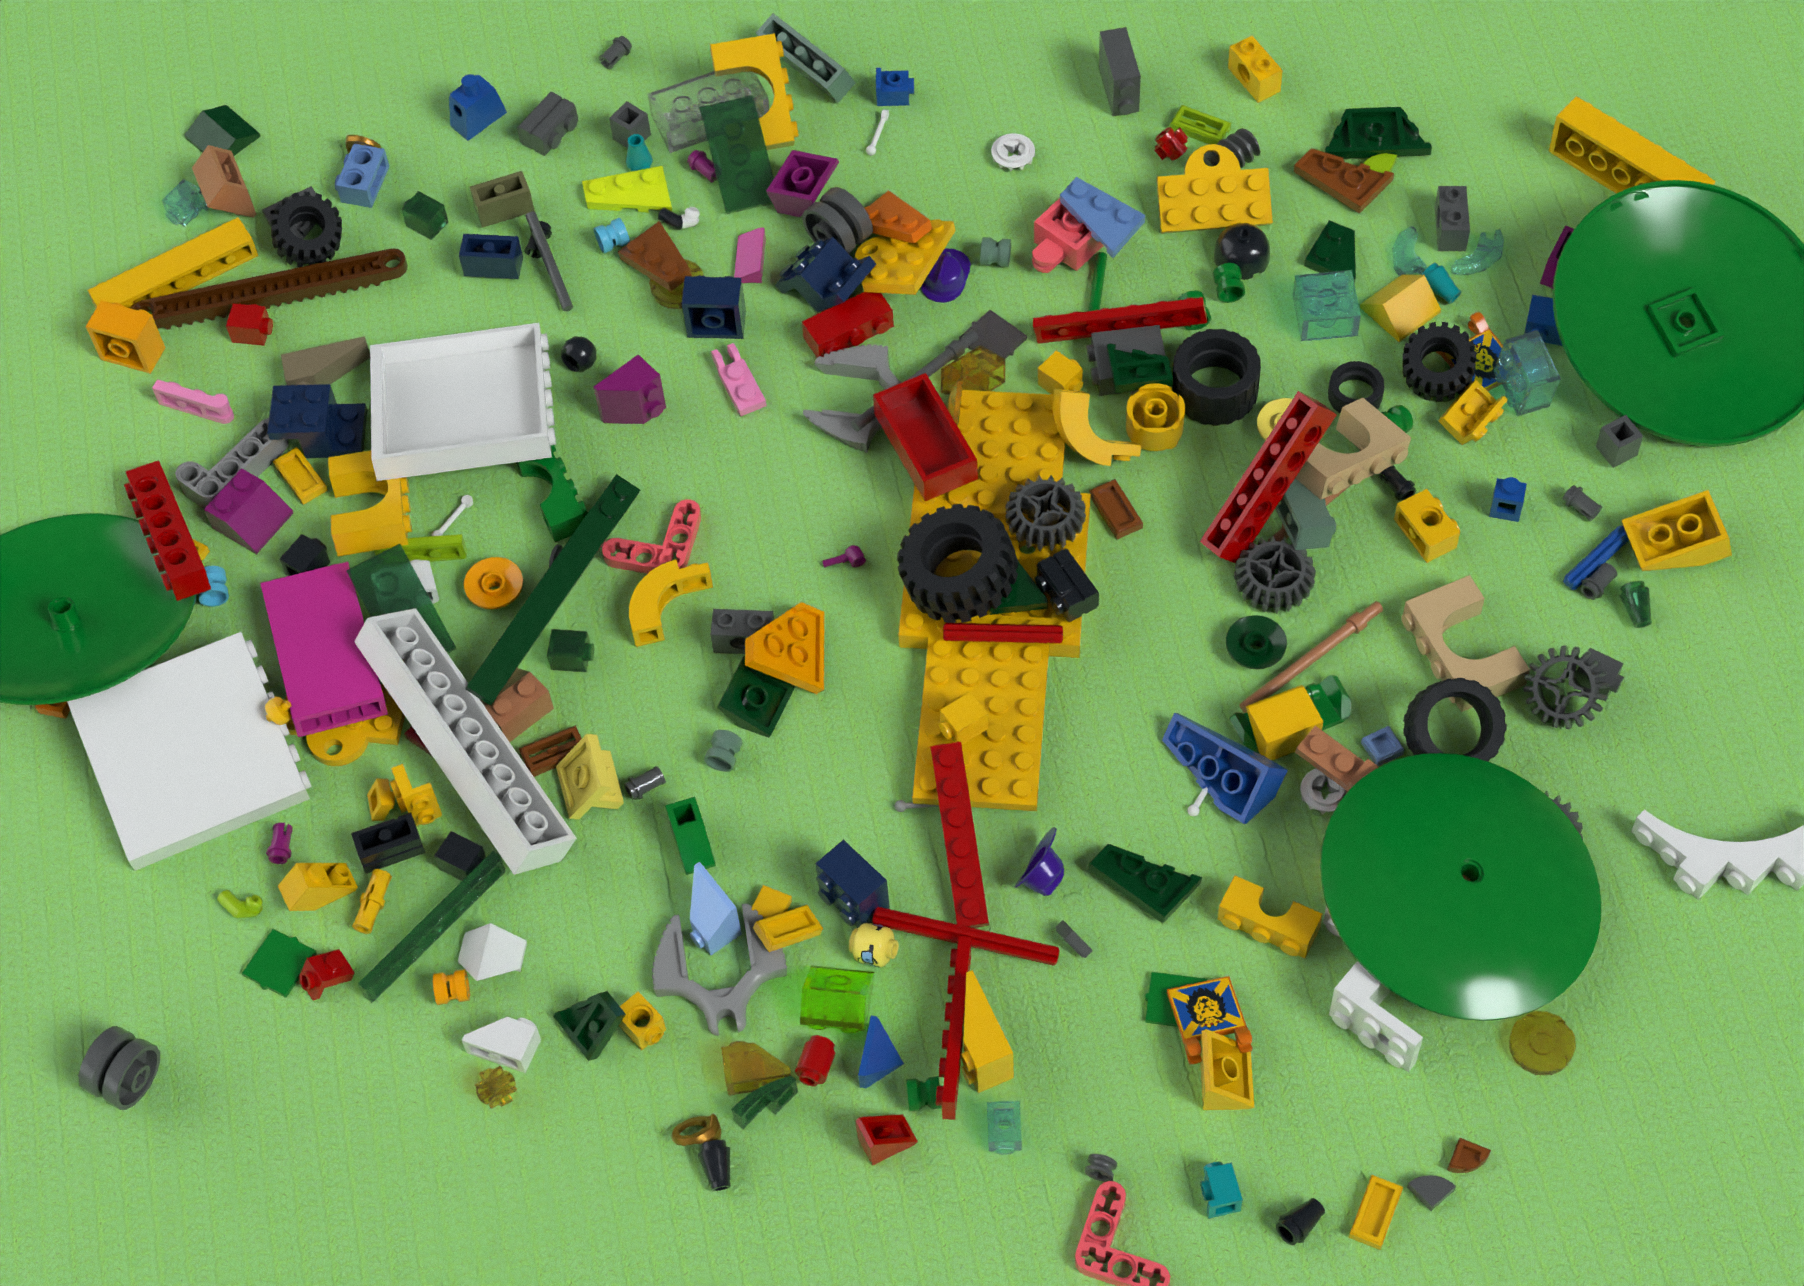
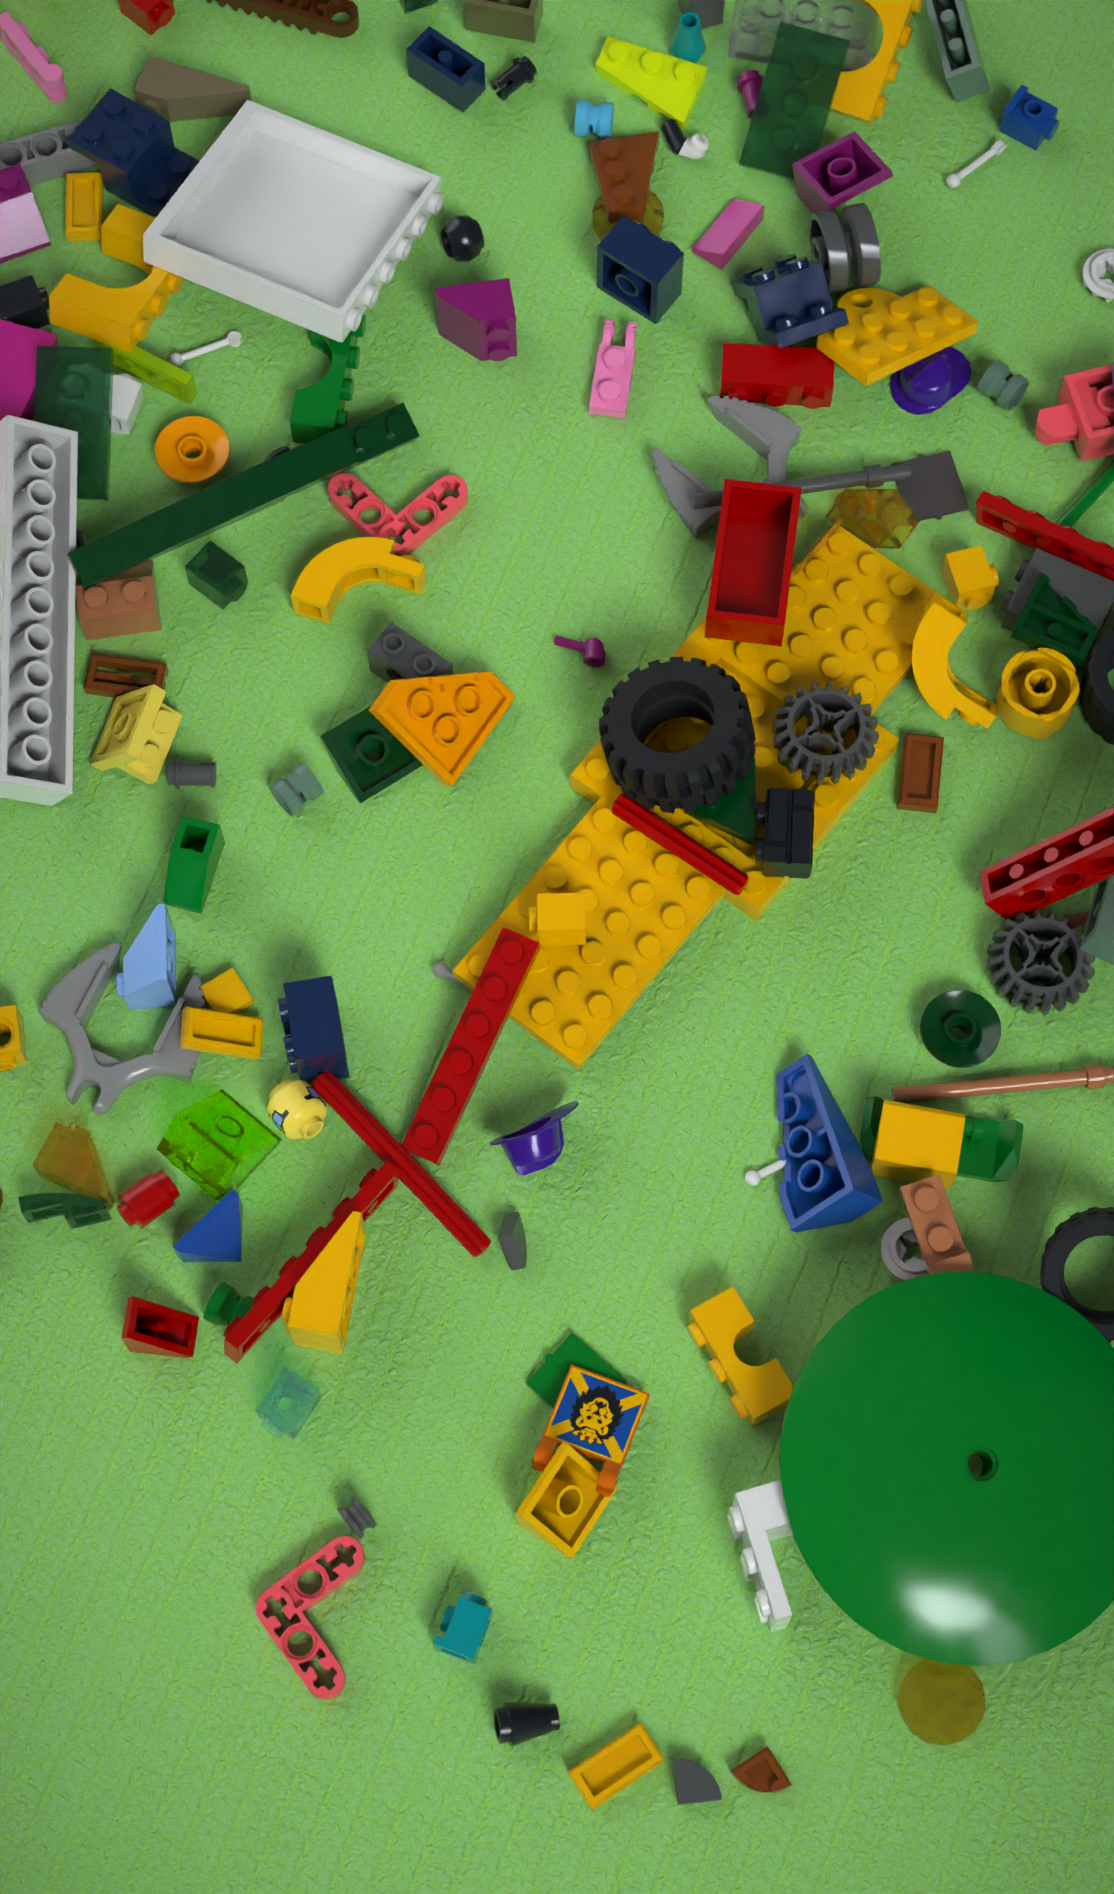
camera: 30 degrees right, 10 degrees up
(549, 261) = (505, 111): dark grey bar -> none
(897, 219) = (914, 280): orange wing -> none
(1147, 885) = (636, 1228): dark green wing -> none
(1382, 746) = (1017, 1239): light blue tile -> none

